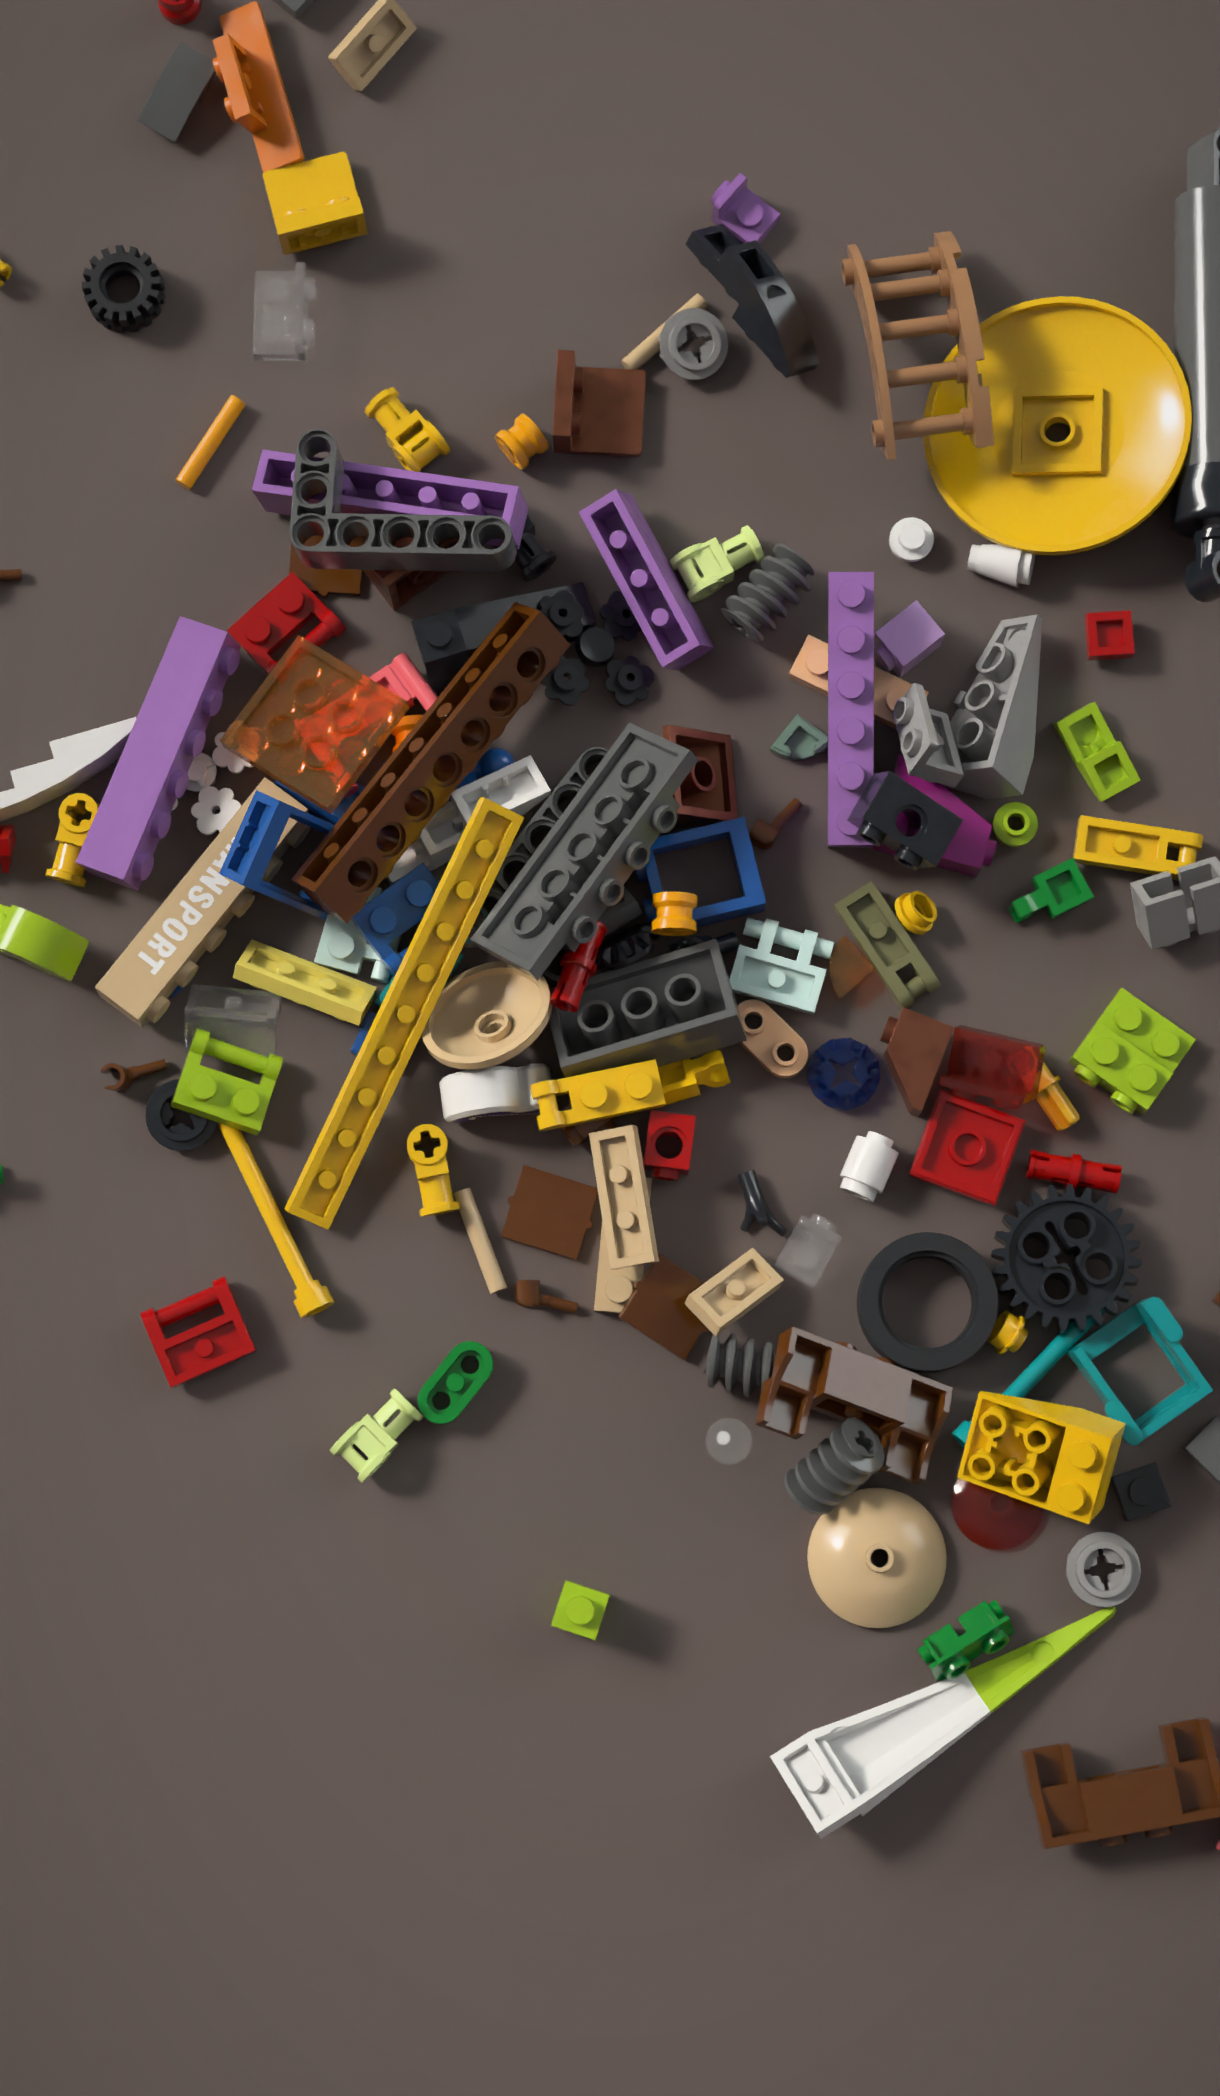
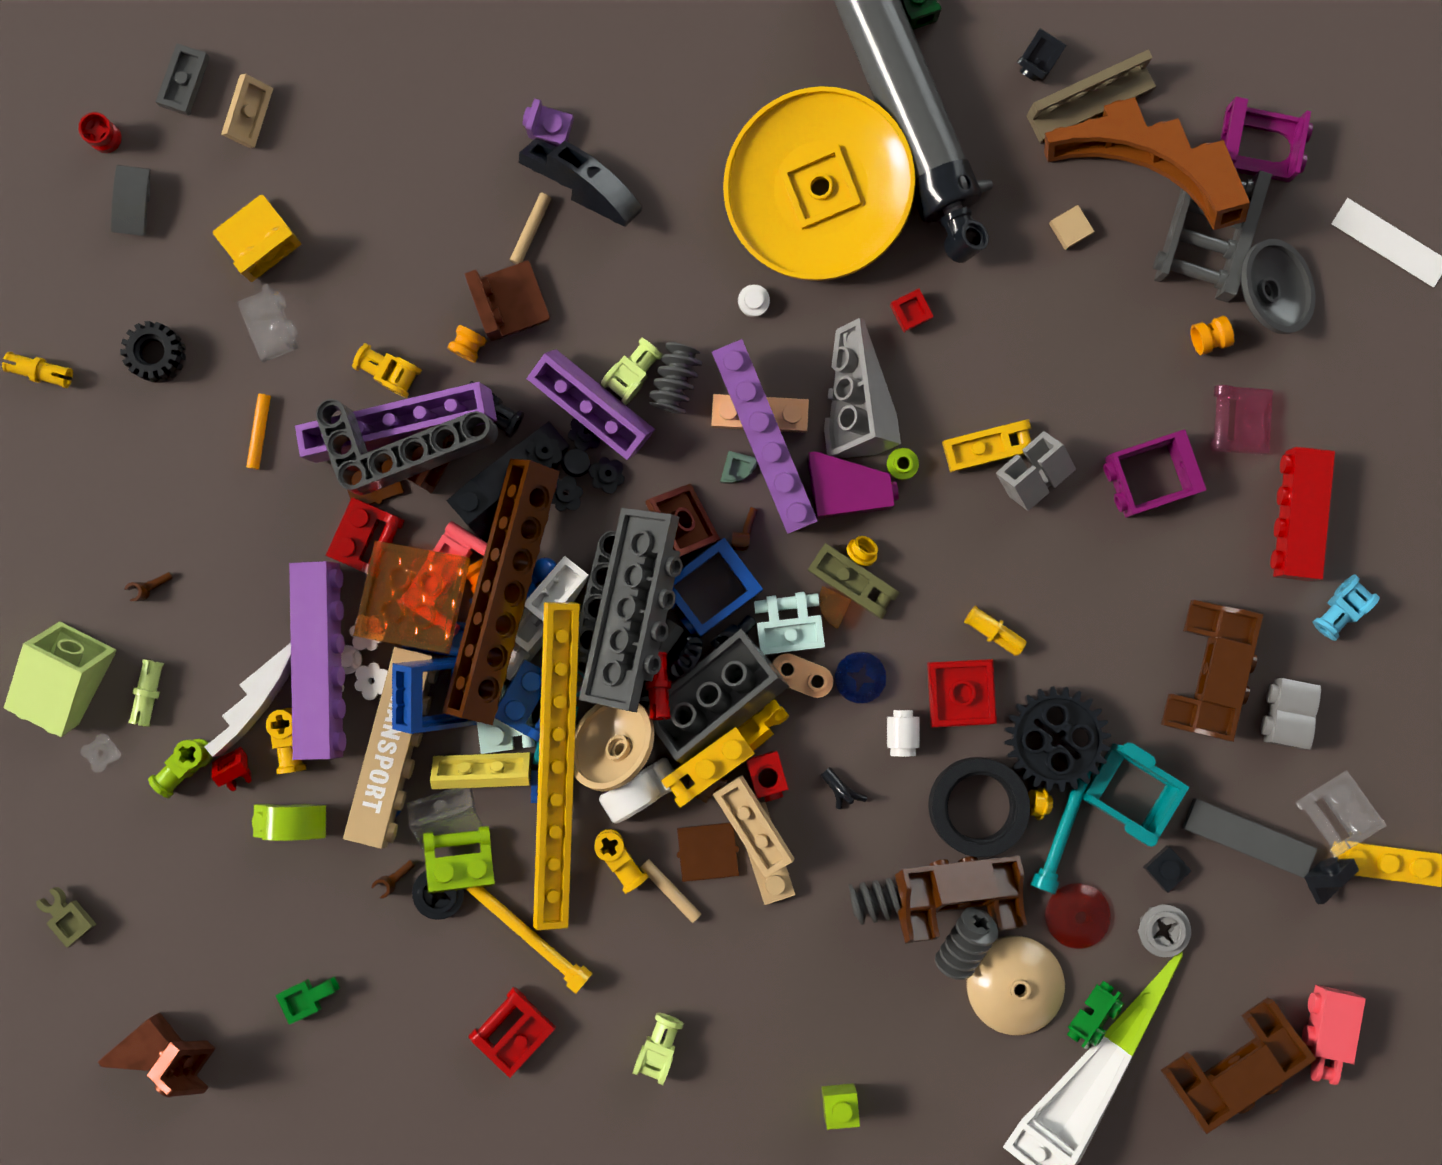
camera: 25 degrees left, 5 degrees up
(256, 87) = (180, 174): orange bracket -> none
(455, 1382) = (695, 991): green plate -> none
(528, 1295) = (717, 912): reddish brown hand -> none
(659, 1307) = (814, 881): reddish brown piece -> none
(674, 913) = (706, 625): light orange wheel -> none
(700, 325) = (567, 231): light grey gear -> none
(728, 1441) = (888, 951): clear tile -> none
(734, 1291) = (851, 855): tan plate -> none
(809, 1249) = (887, 804): clear bracket -> none
(907, 640) = (780, 370): lavender brick -> none
(914, 1054) = (902, 647): copper slope -> none
(926, 739) = (823, 434): light grey bracket -> none
(929, 822) = (851, 497): black brick -> none
(959, 321) = (725, 141): medium nougat fence -> none
(993, 1067) = (958, 634): clear red bracket -> none
(1002, 563) = (820, 292): white cone -> none
(1042, 1453) = (1097, 877): yellow slope -> none
(1056, 890) = (948, 497): green plate -> none
(1074, 1171) = (1037, 678): red pin -> none
(1096, 752) = (934, 392): lime slope -> none
(1130, 1052) = (1041, 583): lime plate -> none

